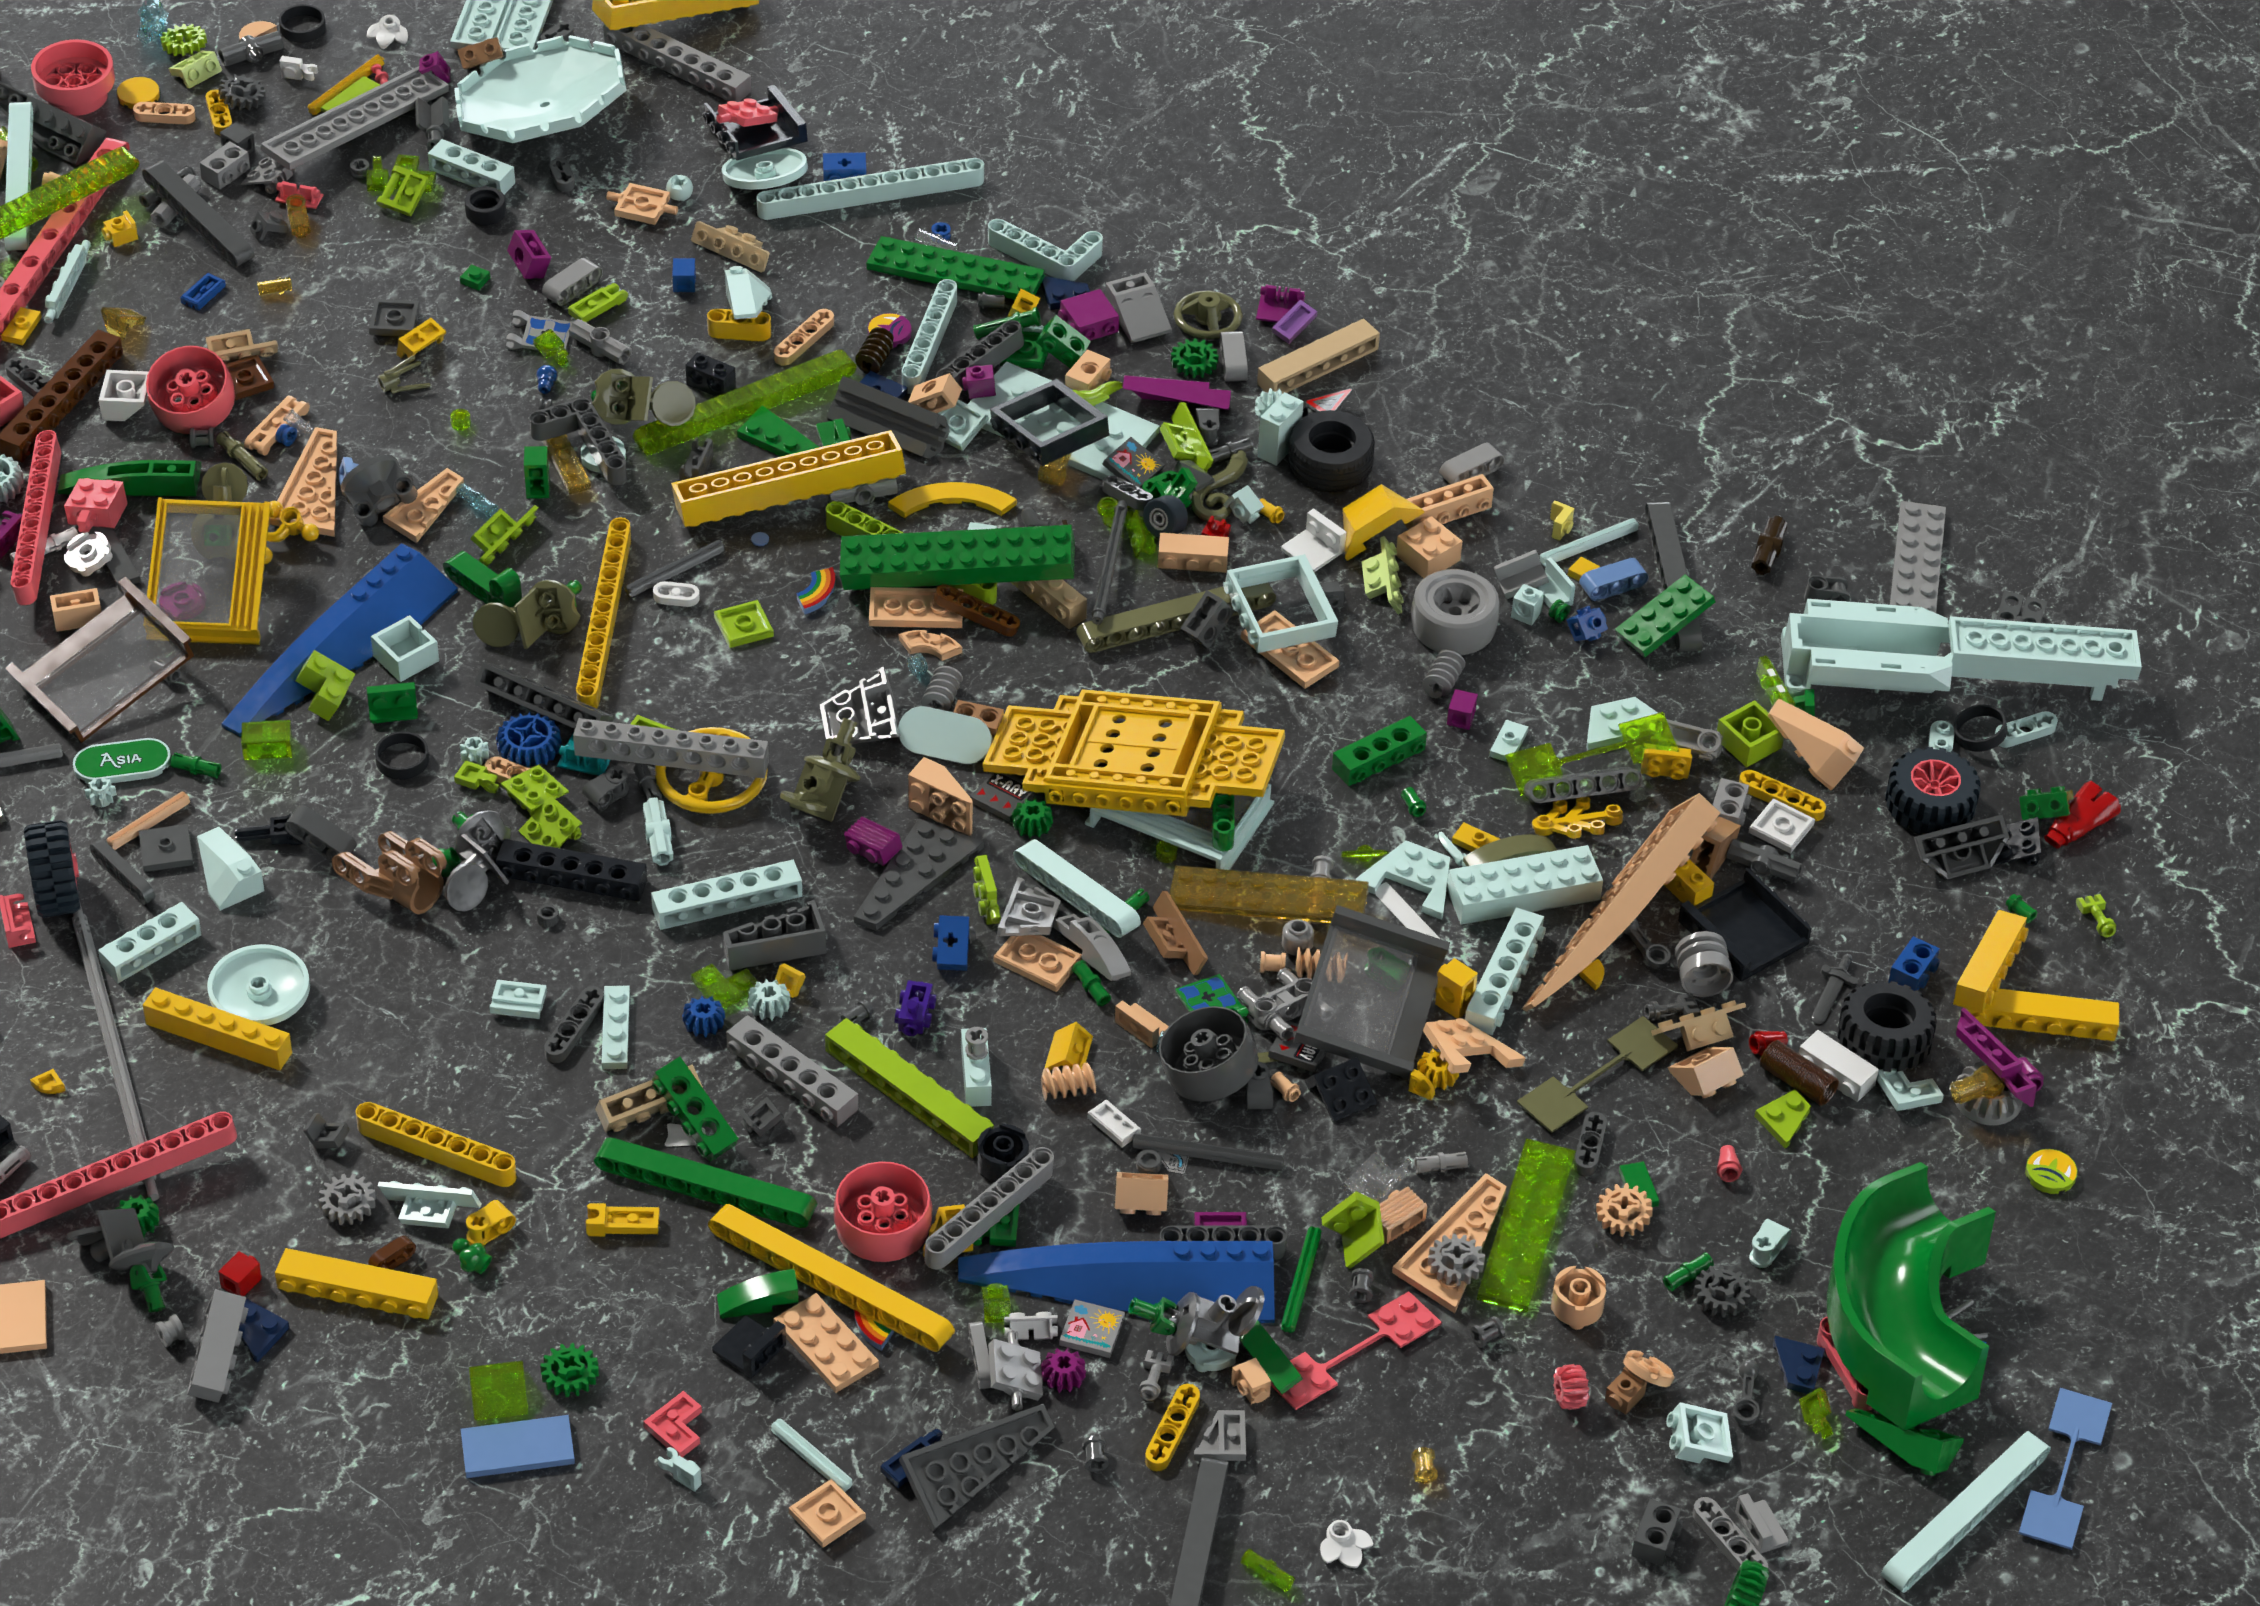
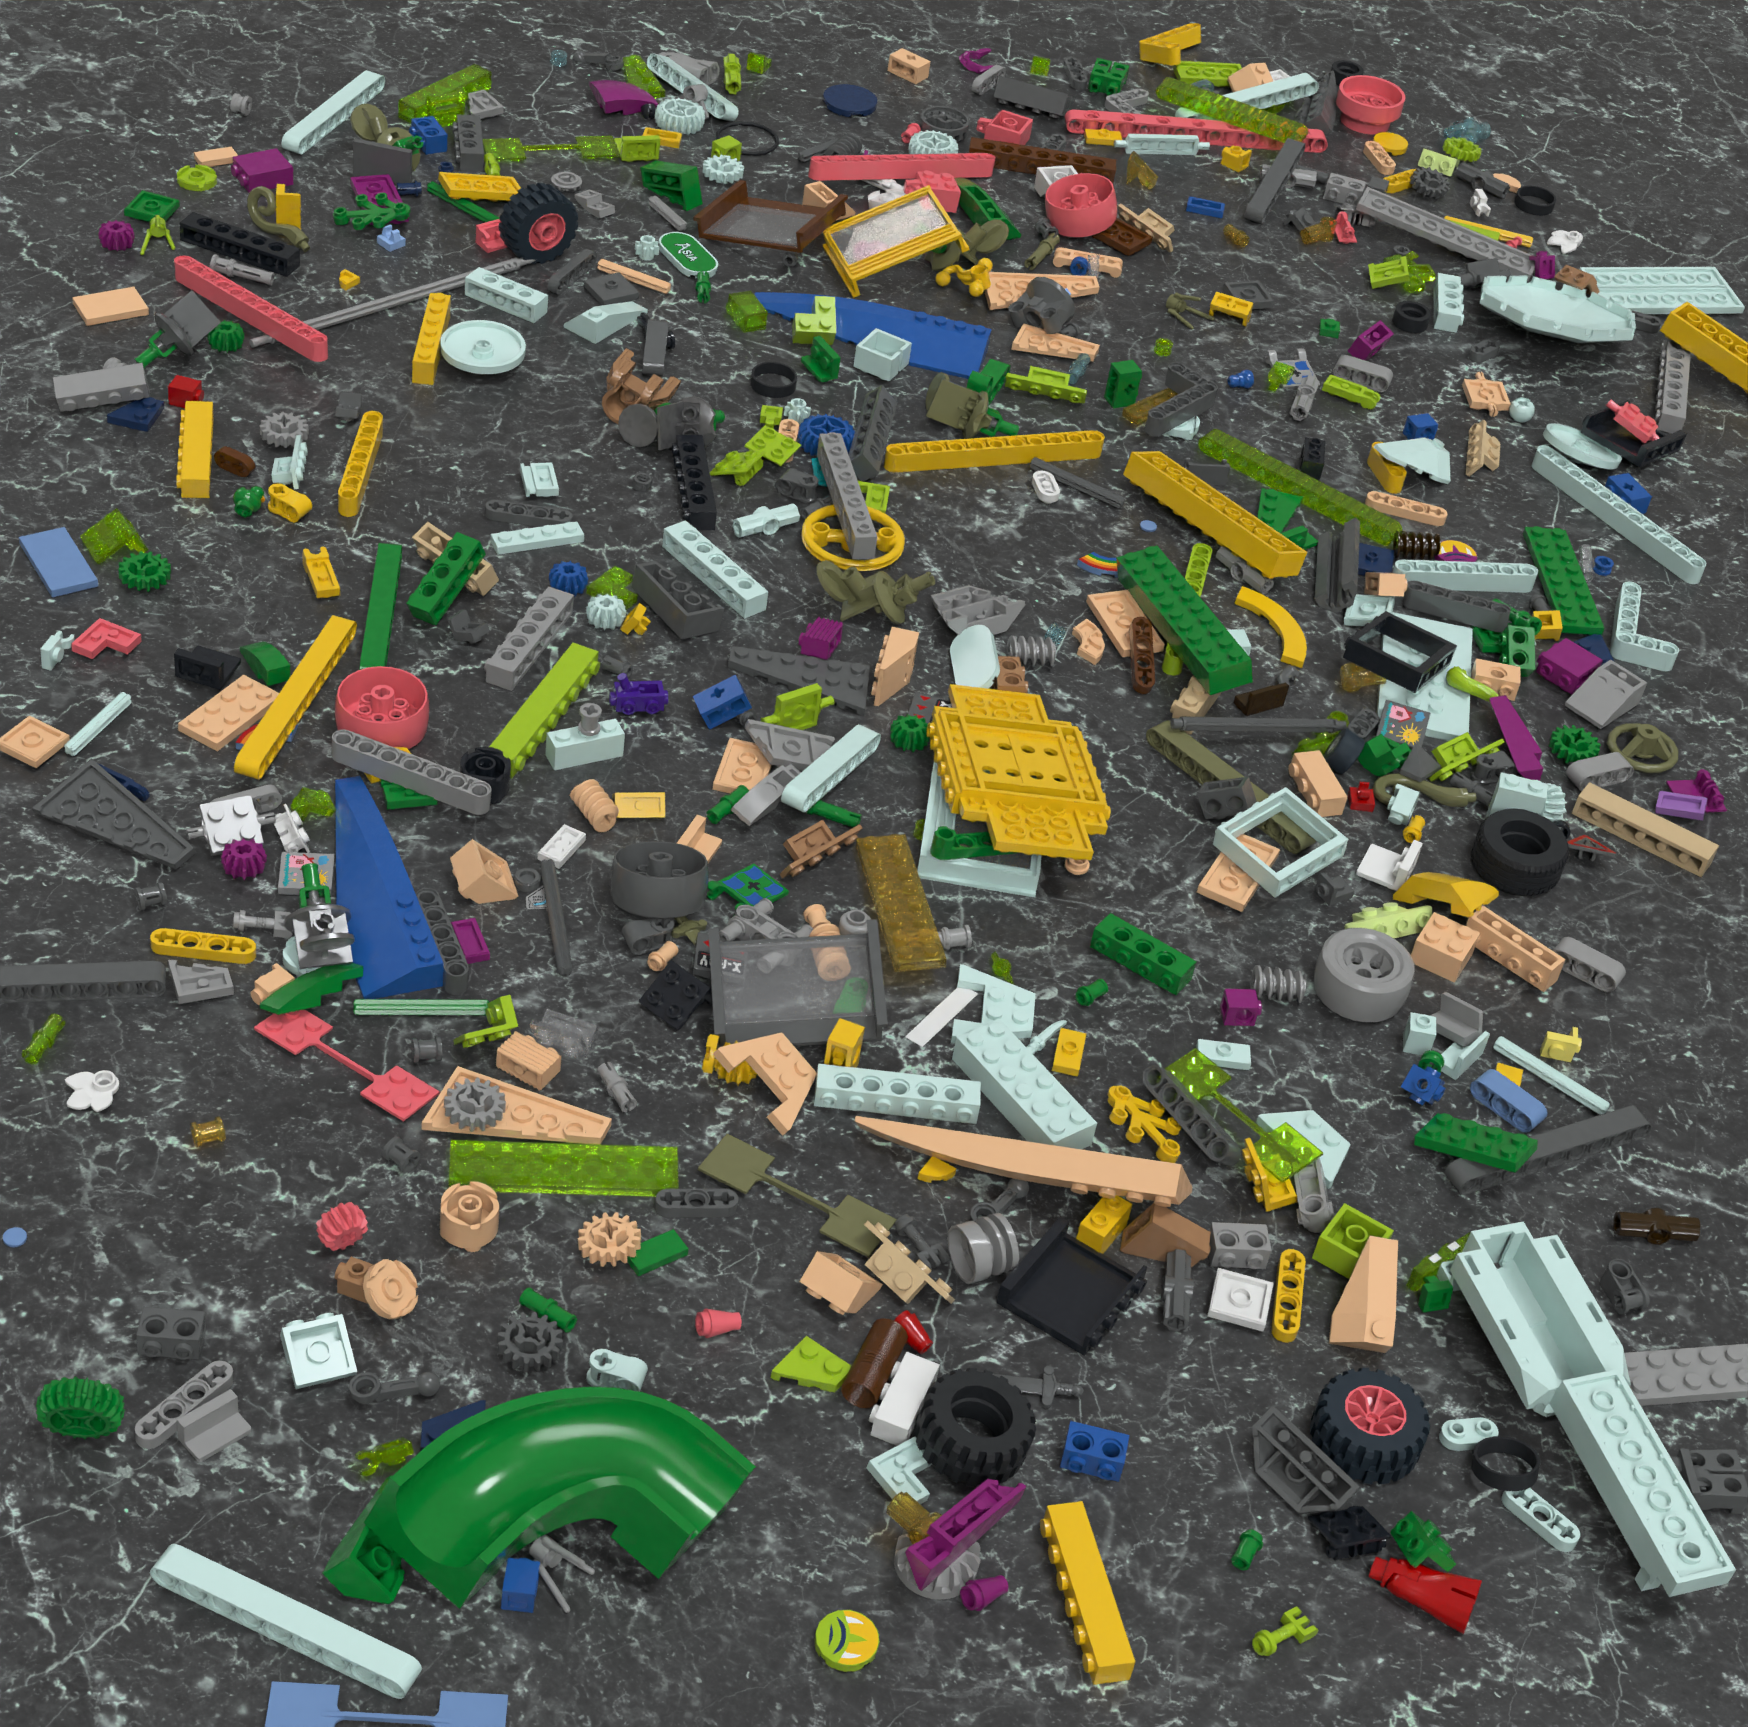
camera: 65 degrees right, 5 degrees down
(632, 399) = (1236, 409): olive piece -> none
(743, 624) = (1040, 531): lime tile -> none
(979, 381) = (1426, 609): magenta brick -> none
(1510, 848) = (1069, 1075): olive slope -> none
(1991, 961) = (1127, 1513): yellow brick -> none

